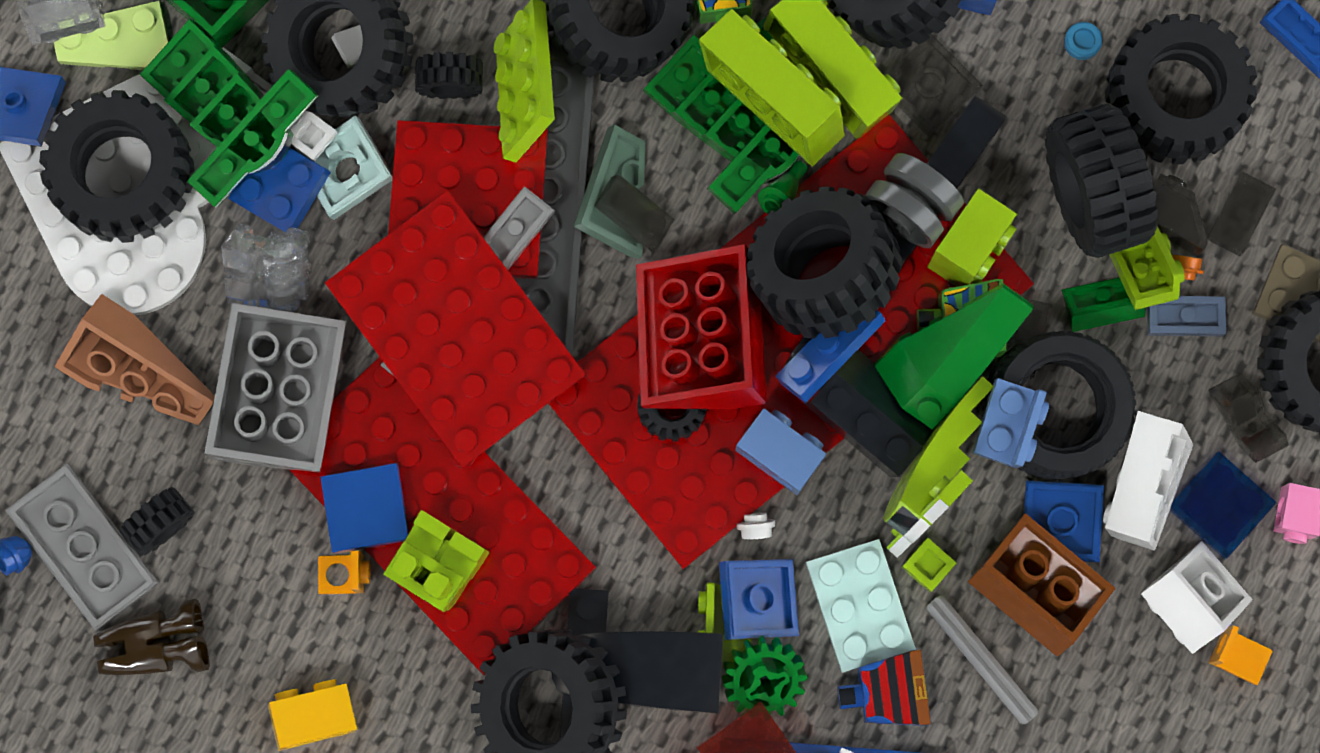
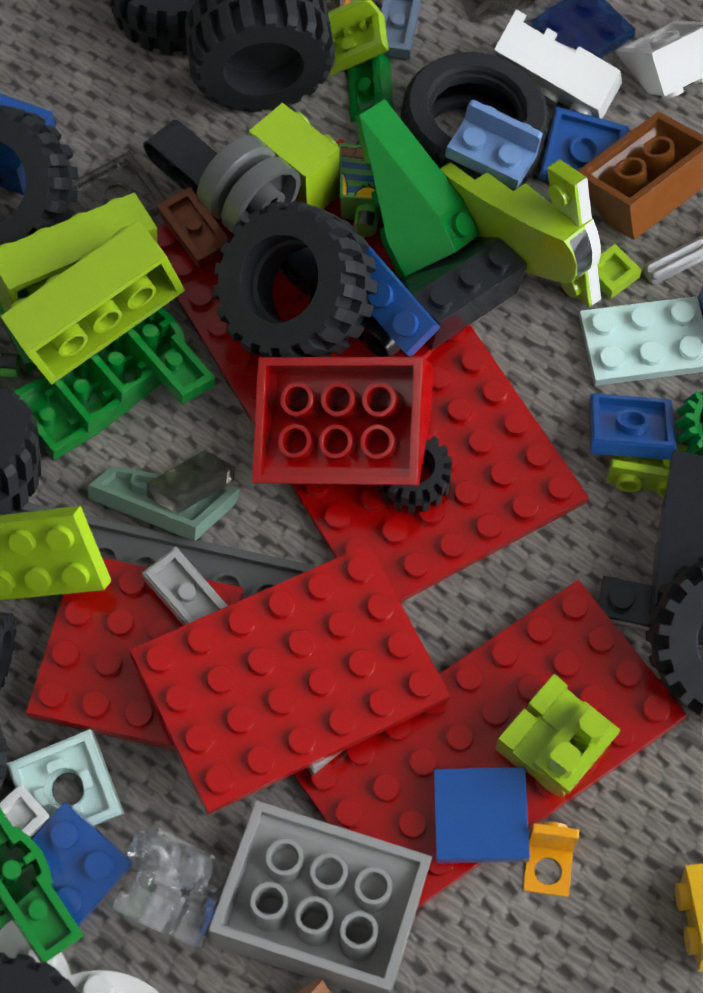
camera: 80 degrees left, 15 degrees down
(756, 526) = (553, 419): white plate -> none
(781, 450) = (481, 373): medium blue brick -> none
(782, 188) = (205, 336): green cone -> none
(905, 141) = (193, 227): none -> copper plate
(1083, 40) = (105, 63): dark azure tile -> none

